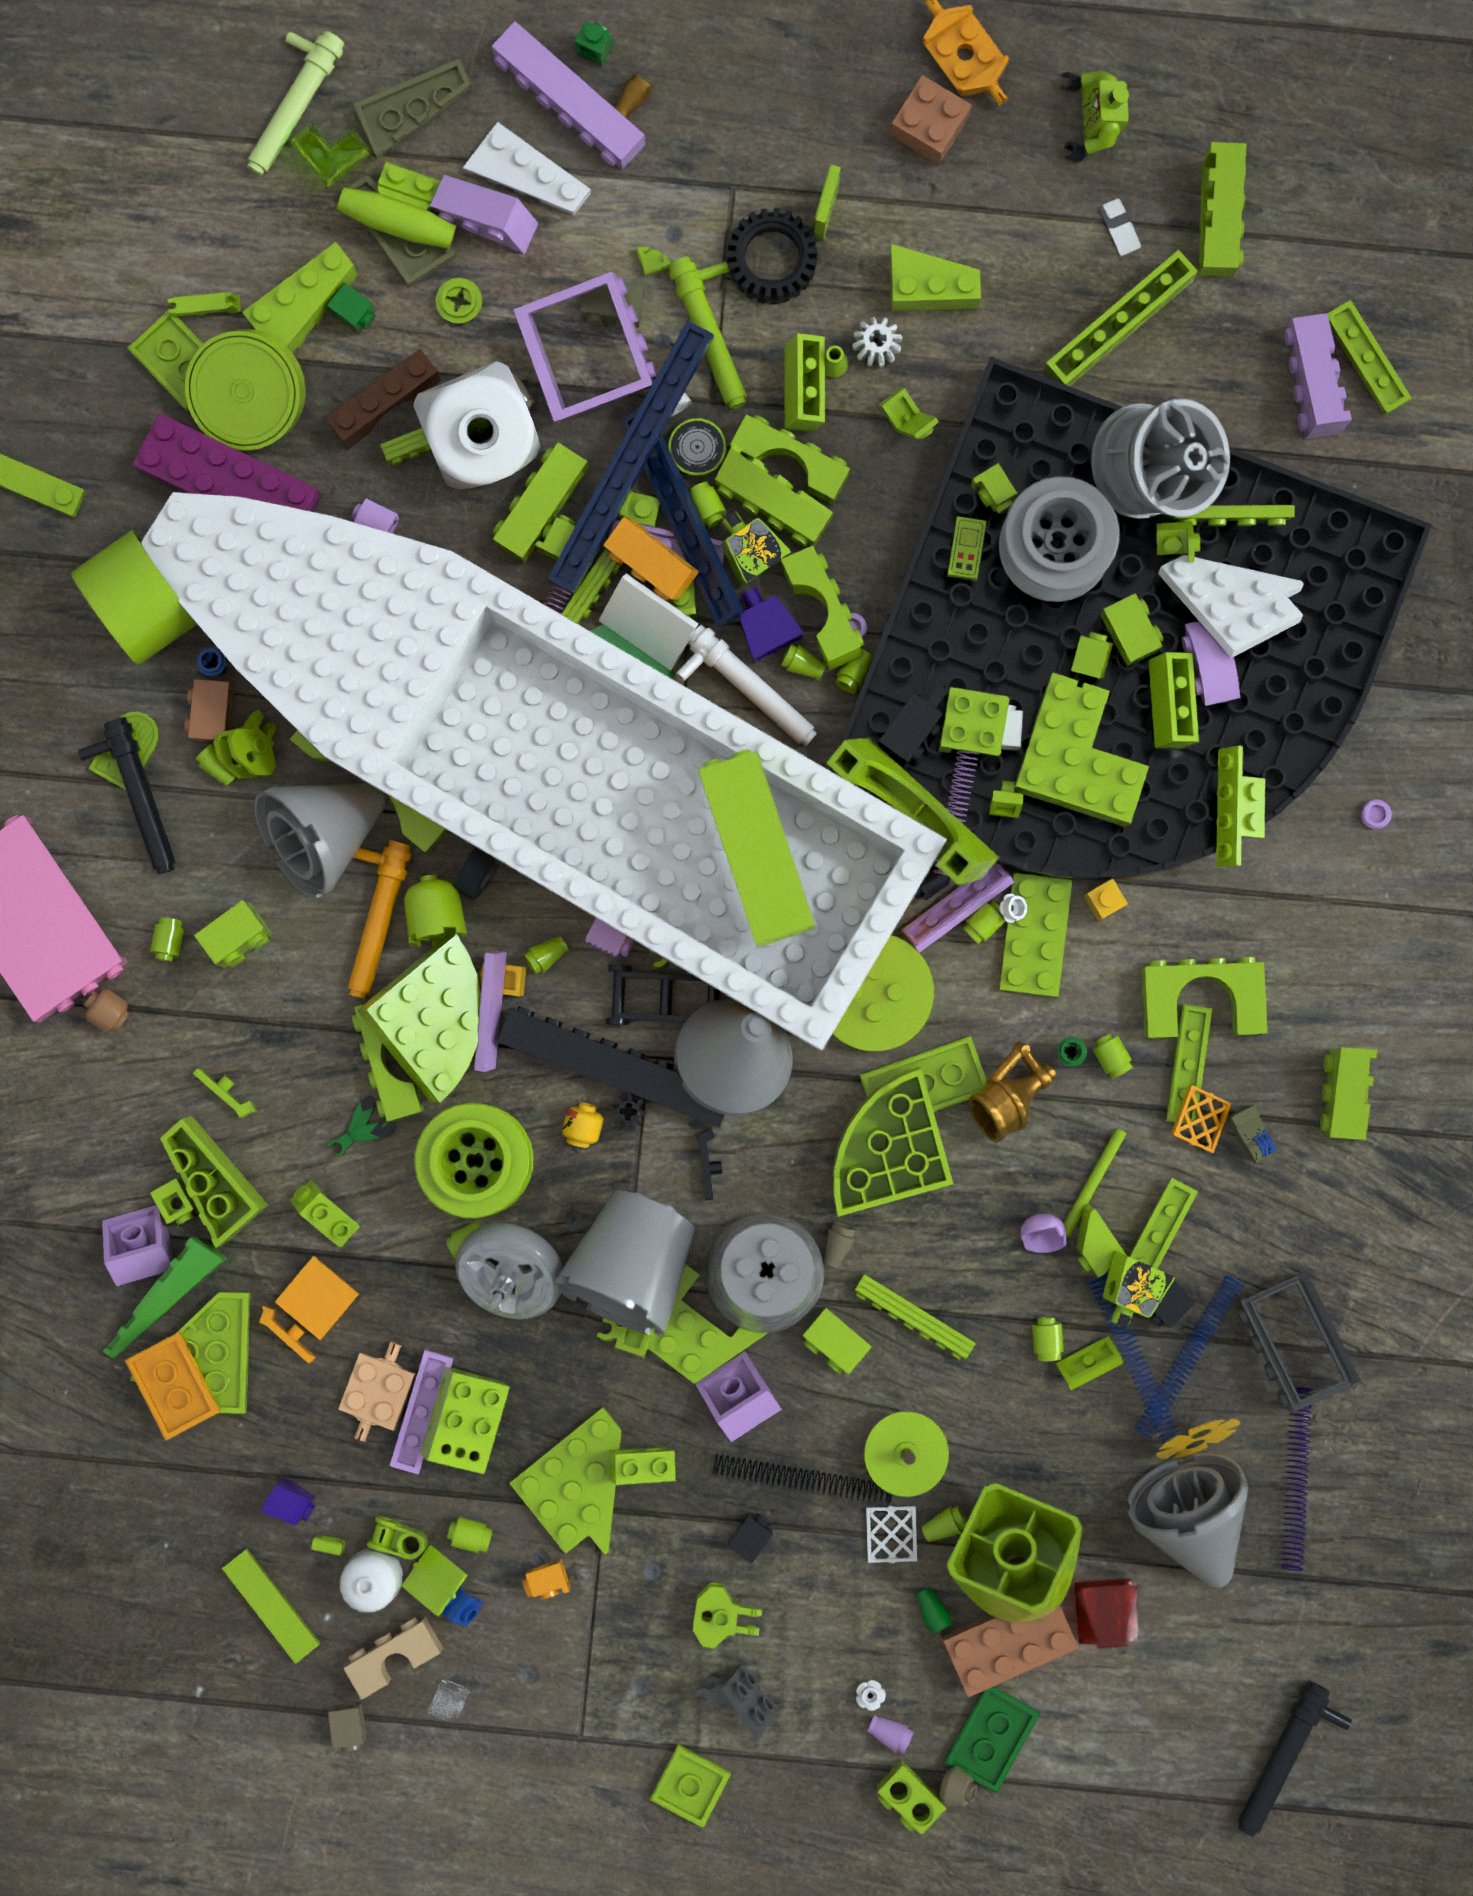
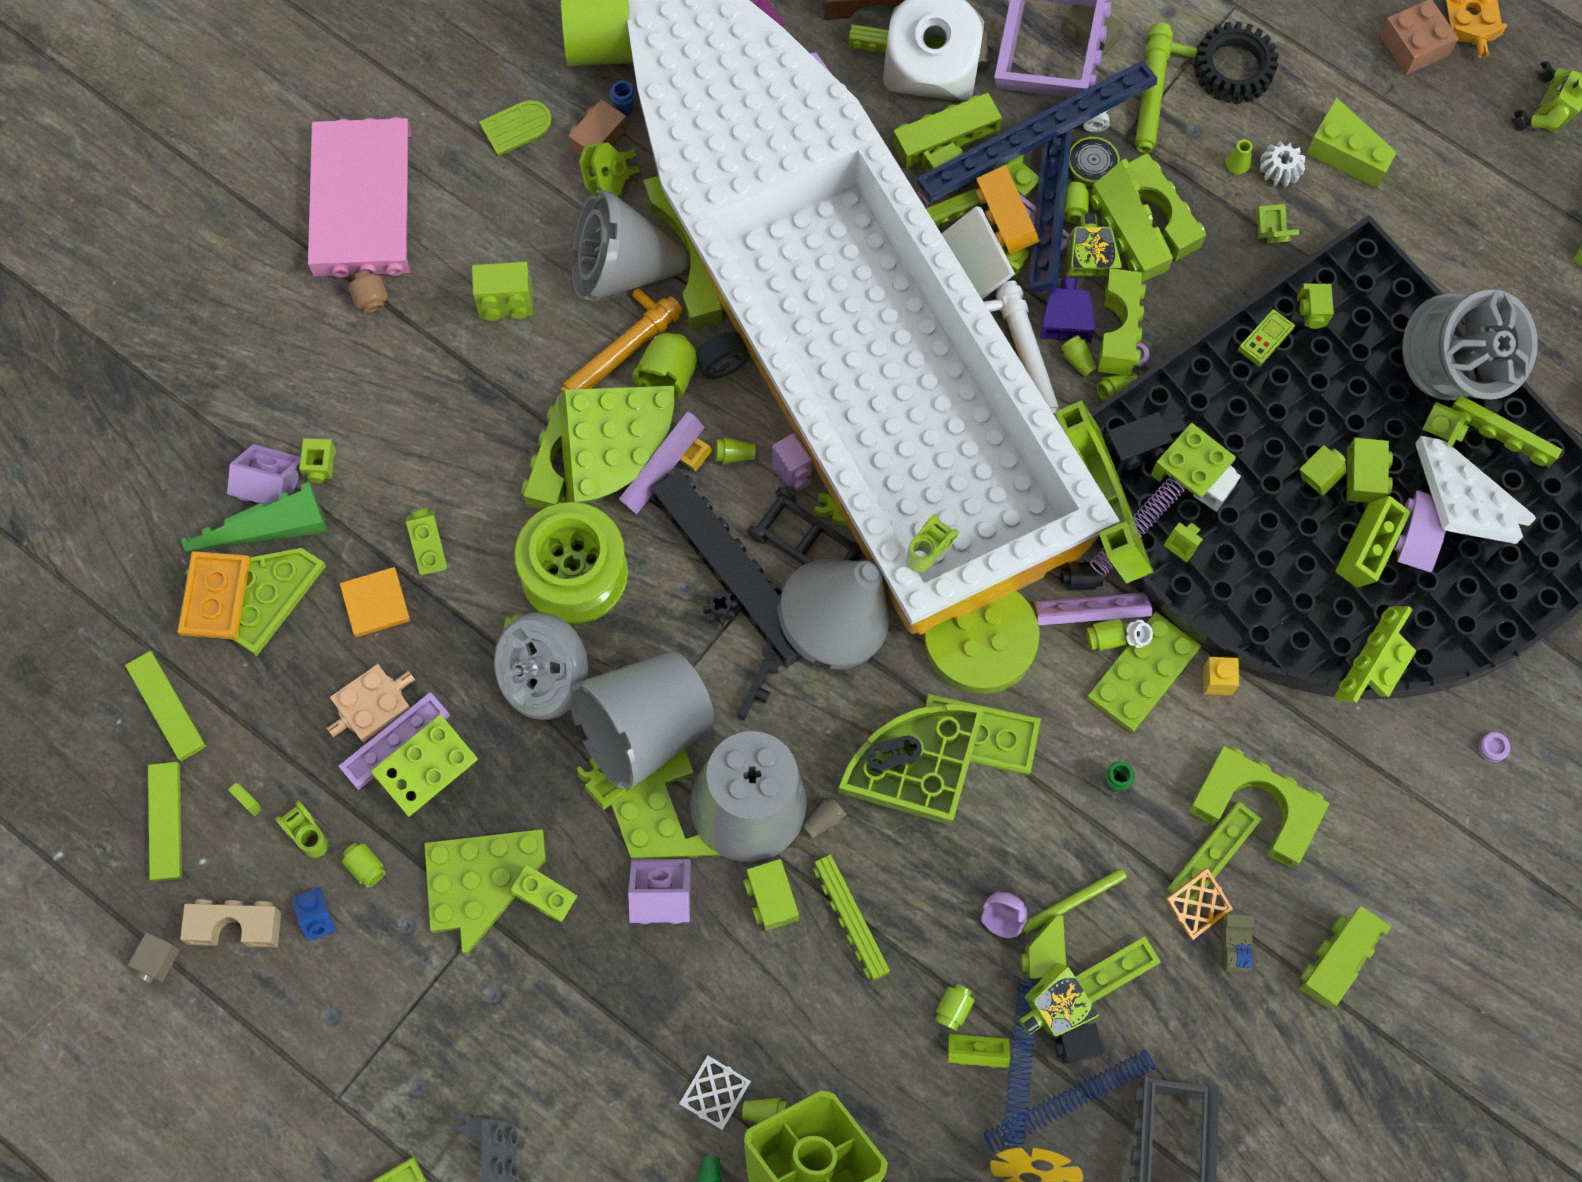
camera: 30 degrees right, 15 degrees down
(126, 753) = (514, 122): black cylinder -> none
(167, 939) = (450, 269): lime brick -> none
(198, 1506) = (165, 706): none -> lime tile
(211, 765) = (573, 171): lime cone -> none
(212, 1181) = (357, 464): lime wedge -> none
(222, 1088) = (419, 425): lime piece -> none
(289, 1337) = (326, 592): light orange piece -> none
(289, 1502) = (237, 741): dark purple slope -> none
(358, 1127) = (499, 496): green piece -> none
(371, 1580) = (257, 848): white cylinder -> none
(434, 1580) = (308, 882): lime piece -> none
(448, 1700) = (250, 990): clear brick -> none
(546, 1580) = (400, 941): light orange brick -> none
(582, 1125) = (676, 595): yellow head -> none
(652, 260) = (1140, 19): lime tile -> none
(715, 1469) = (602, 937): black piece -> none
(724, 1611) = (525, 1066): lime hinge -> none
(751, 1536) = (594, 1014): black brick -> none
(756, 848) = (957, 433): lime brick -> none
(797, 966) = (933, 540): none -> lime piece
(804, 382) = (1207, 158): lime brick -> none
(826, 202) = (1302, 45): lime tile -> none
(862, 1155) = (892, 746): none -> black beam
(906, 1454) = (771, 1023): lime piece -> none
(1005, 1102) = (1037, 785): pearl gold piece -> none
(1053, 501) = (1365, 385): light grey wheel -> none
(1064, 766) = (1252, 542): lime piece -> none
(1112, 1055) = (1152, 805): lime brick -> none
(1120, 227) = (1527, 193): white sticker -> none
(1121, 320) = (1493, 251): lime brick -> none

